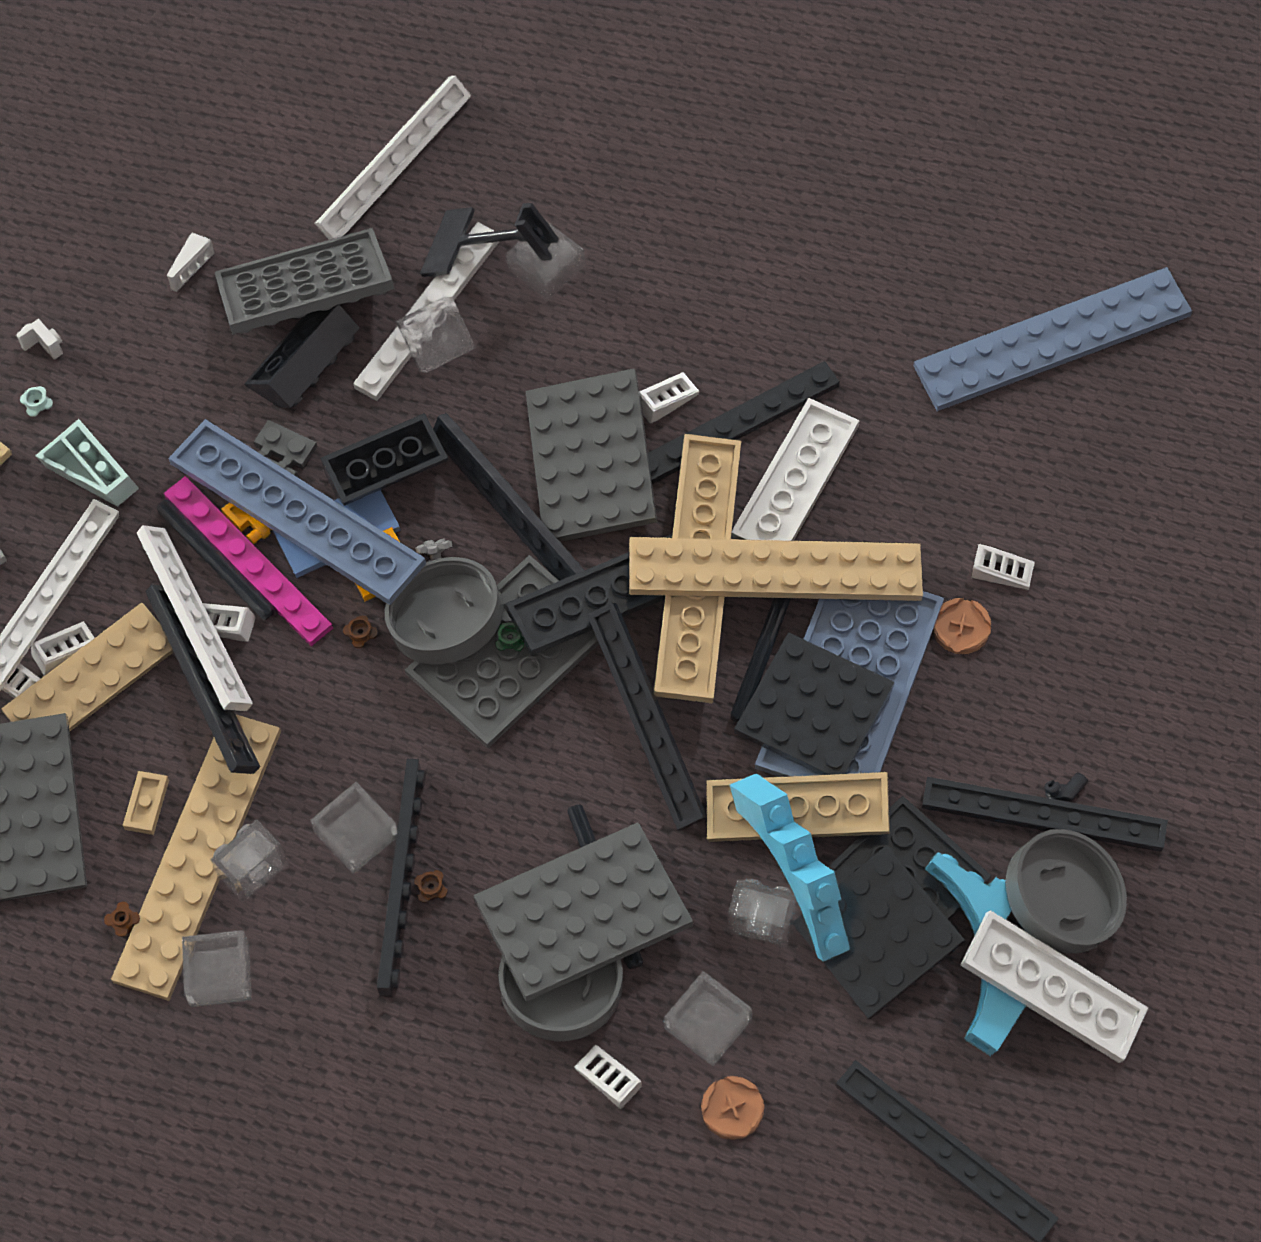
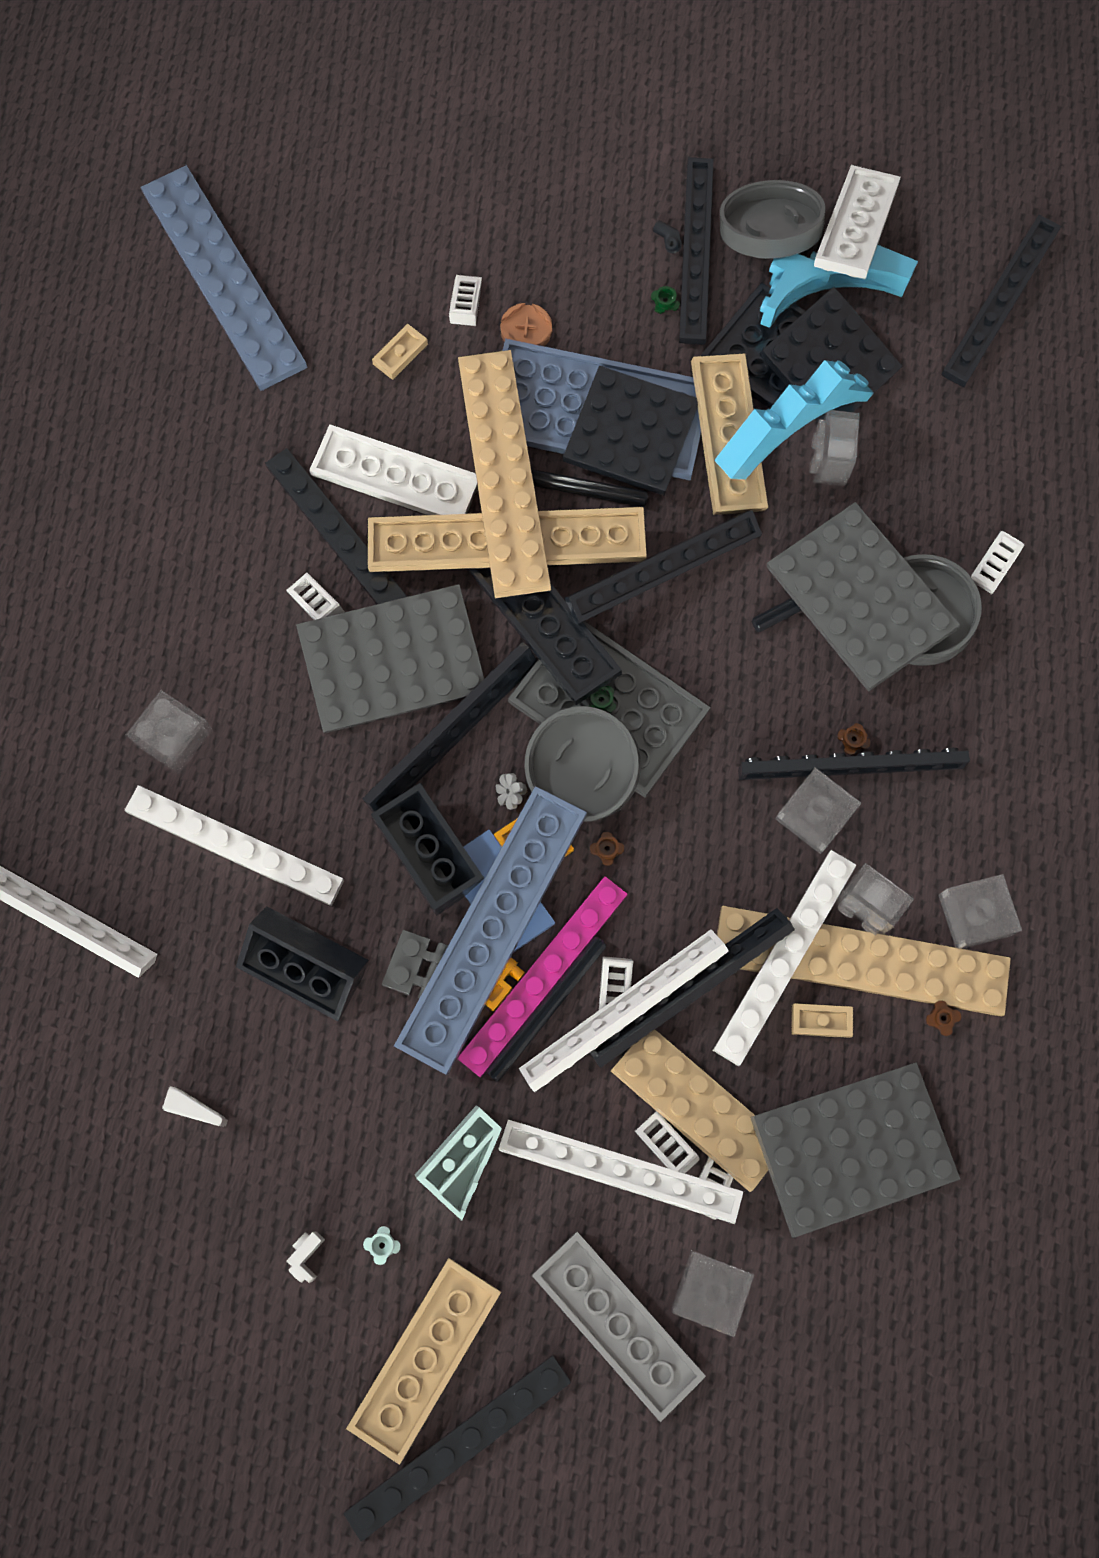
camera: 105 degrees left, 10 degrees up
(212, 771) = (784, 959): none -> white plate
(303, 281) = (219, 971): dark grey plate -> none
(435, 334) = (272, 822): clear brick -> none
(452, 235) = (152, 833): black piece -> none
(708, 1018) = (936, 483): clear brick -> none
(732, 1108) = (999, 463): nougat tile -> none
(941, 496) = (400, 351): none -> tan plate
(985, 765) = (665, 293): none -> dark green plate

